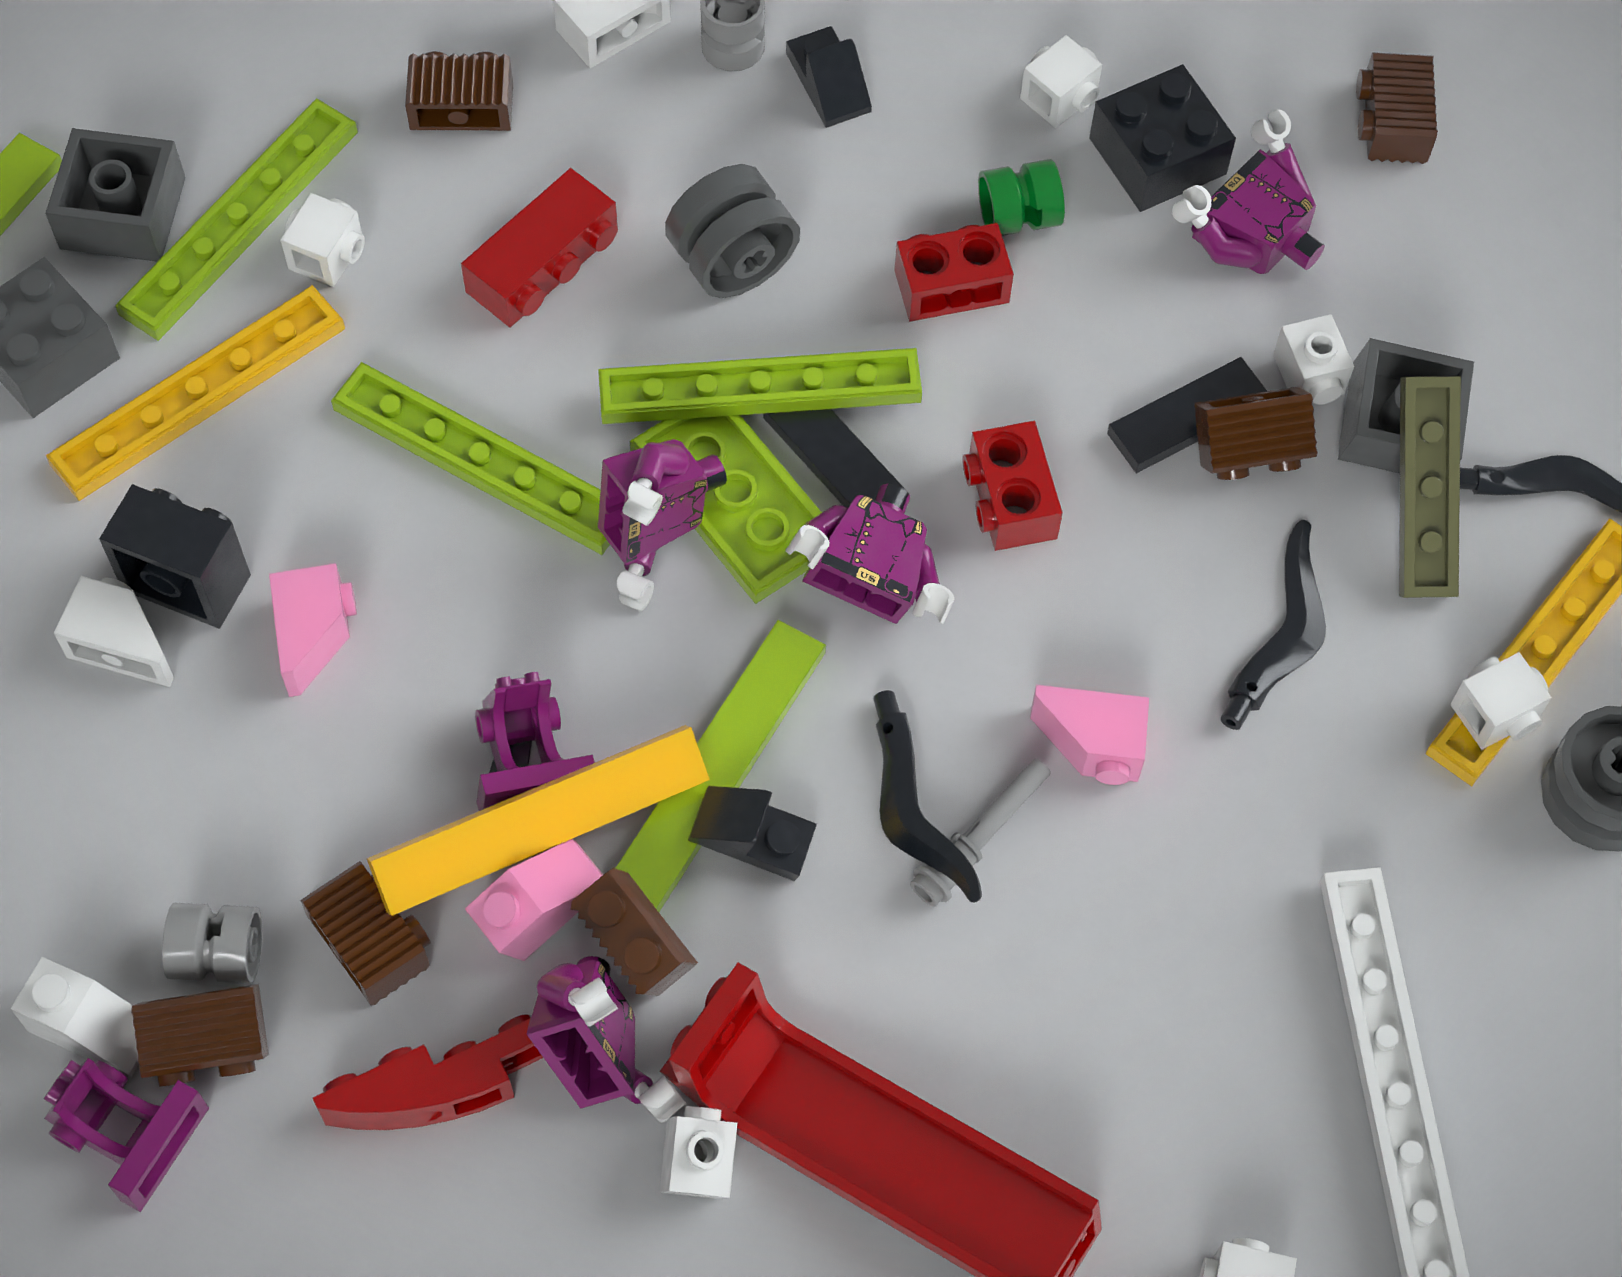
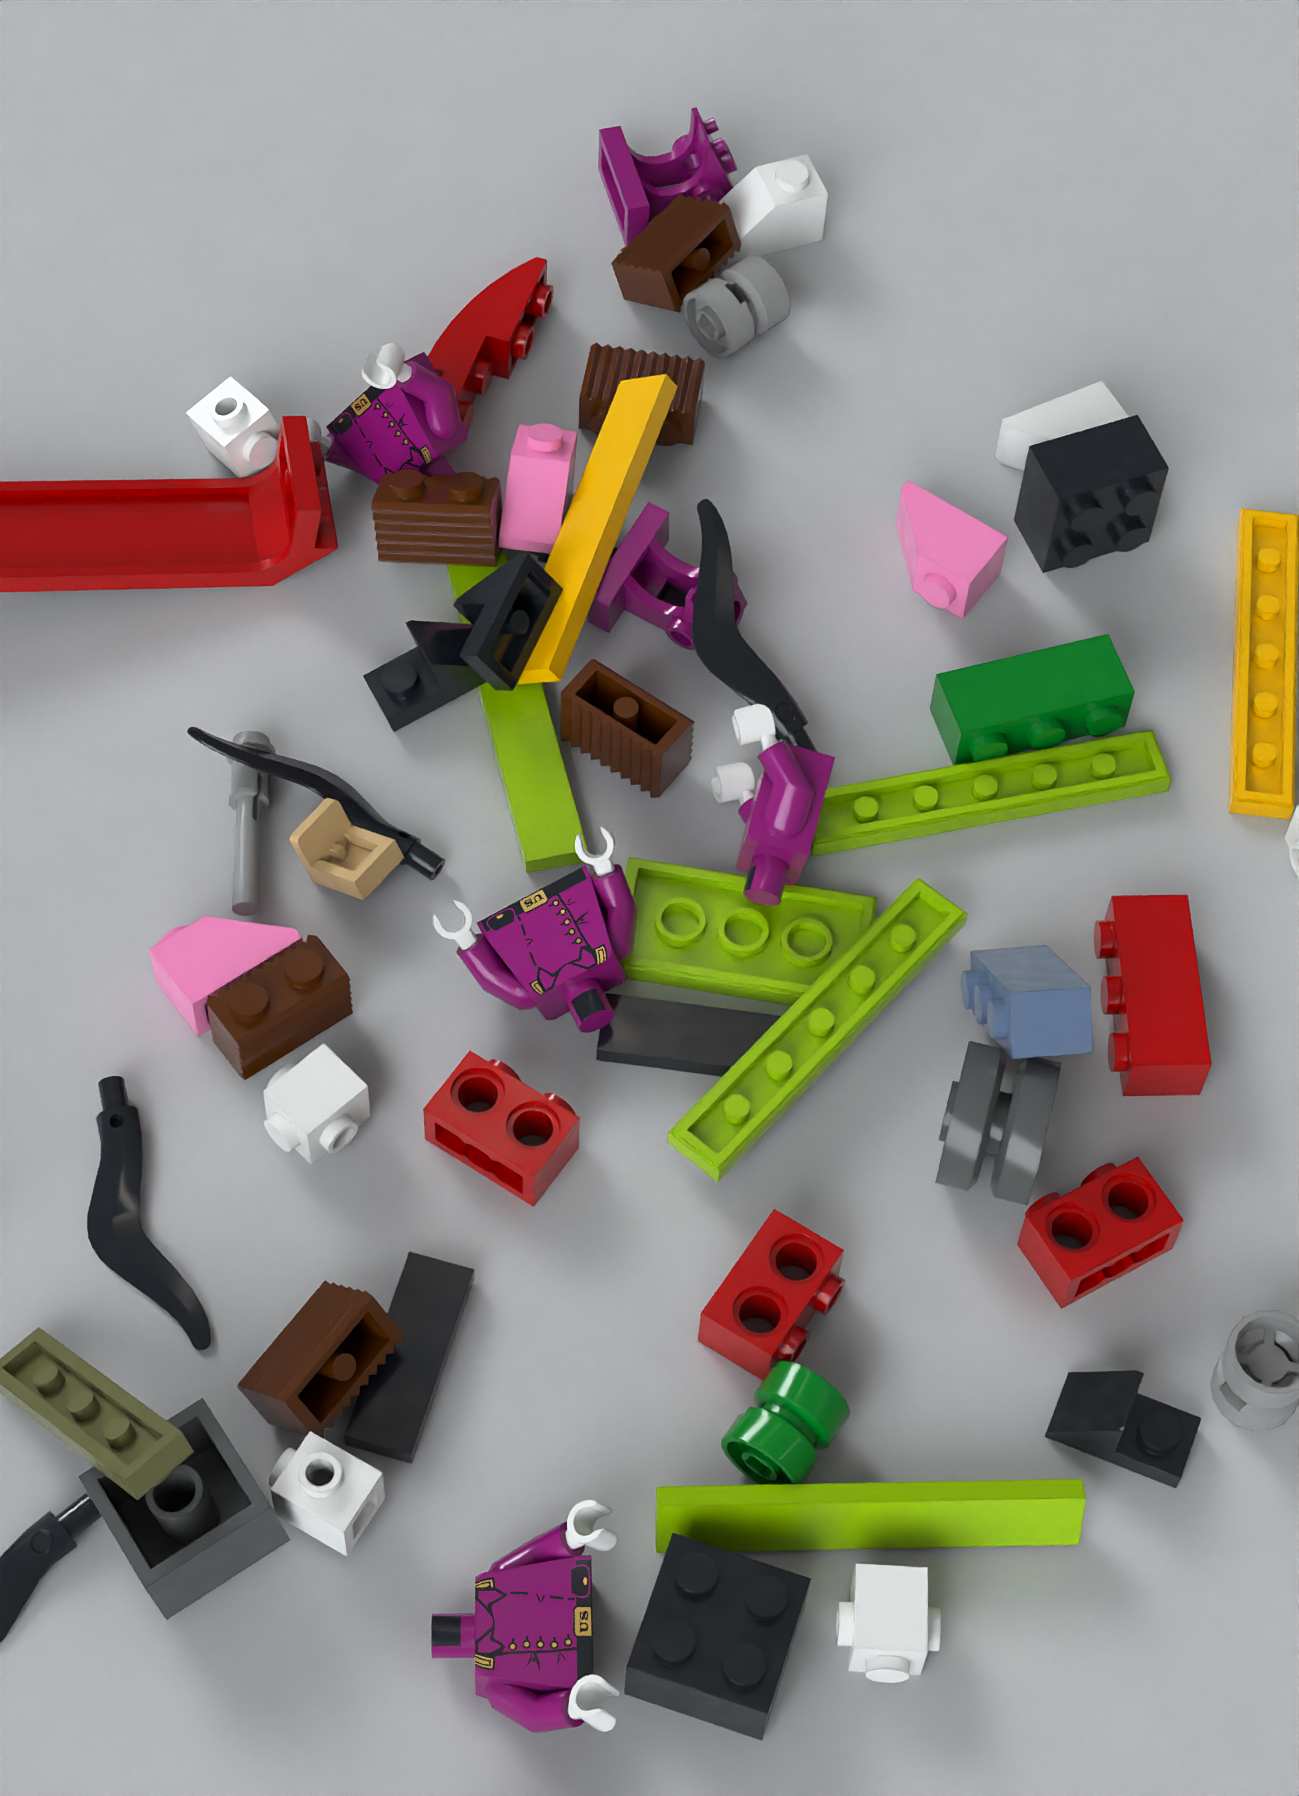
camera: 135 degrees right, 5 degrees down
(385, 474) = (1032, 700): none -> green brick
(556, 644) = (720, 642): none -> black piece
(642, 263) = (1029, 1001): none -> sand blue brick
(672, 788) = (507, 619): none -> black slope
(673, 663) = (625, 728): none -> reddish brown brick
(729, 143) = (1108, 1242): none -> red brick
(941, 741) = (343, 854): none -> tan bracket
(1020, 131) = (873, 1514): none -> lime tile
(1085, 661) = (279, 1006): none -> reddish brown brick
(1117, 591) = (315, 1105): none -> white brick

